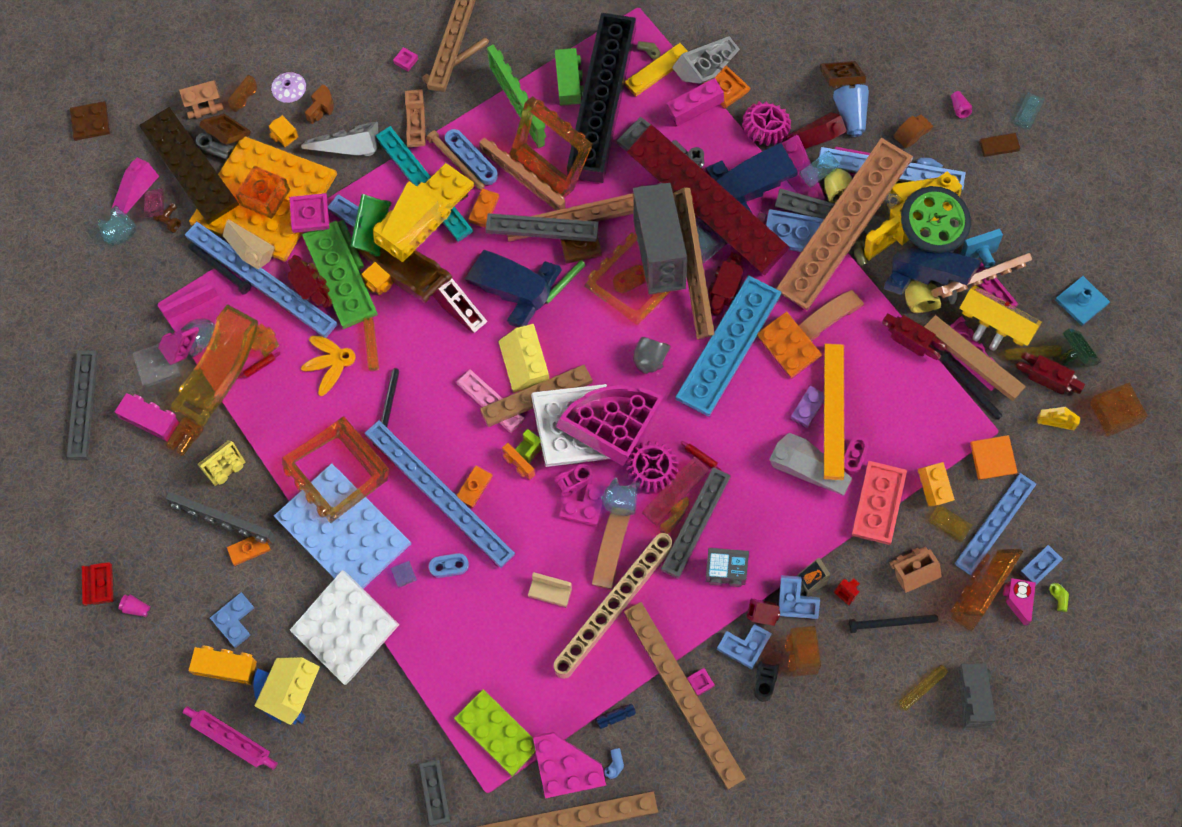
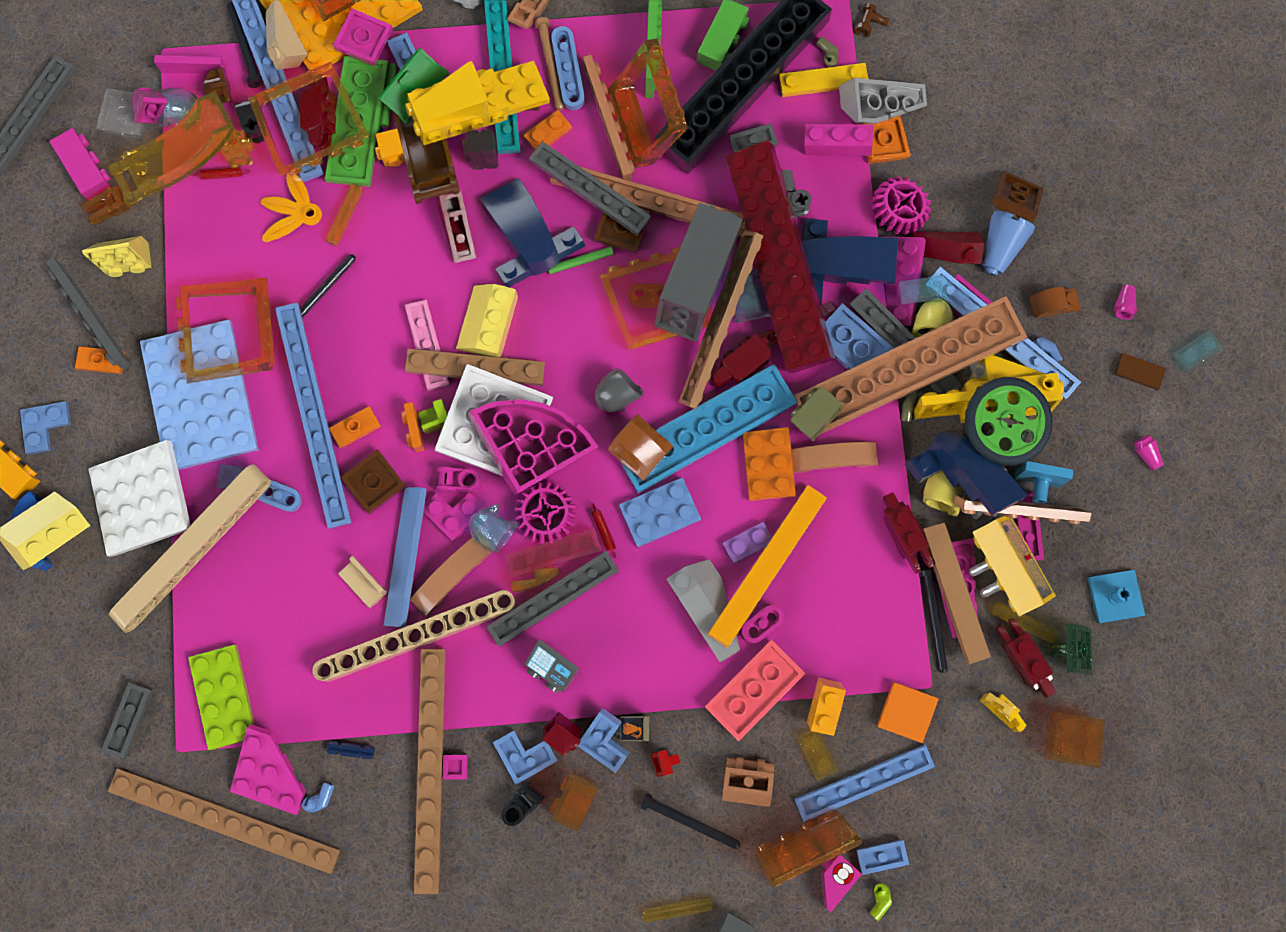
camera: 25 degrees right, 10 degrees up
(216, 303) = (218, 81): none -> reddish brown piece
(260, 313) = (248, 121): none -> black piece
(303, 246) = (289, 86): none -> clear orange windscreen
(406, 640) = (189, 548): none -> tan beam
(446, 243) = (481, 149): none -> clear smoke brick
(513, 516) = (373, 481): none -> reddish brown plate
(570, 555) = (405, 557): none -> medium blue tile
(661, 10) = (869, 15): none -> reddish brown piece
(692, 382) = (639, 447): none -> dark orange slope
(733, 421) = (660, 512): none -> medium blue plate
(801, 289) = (816, 413): none -> olive brick
(1041, 193) = (1149, 451): none -> dark pink cone

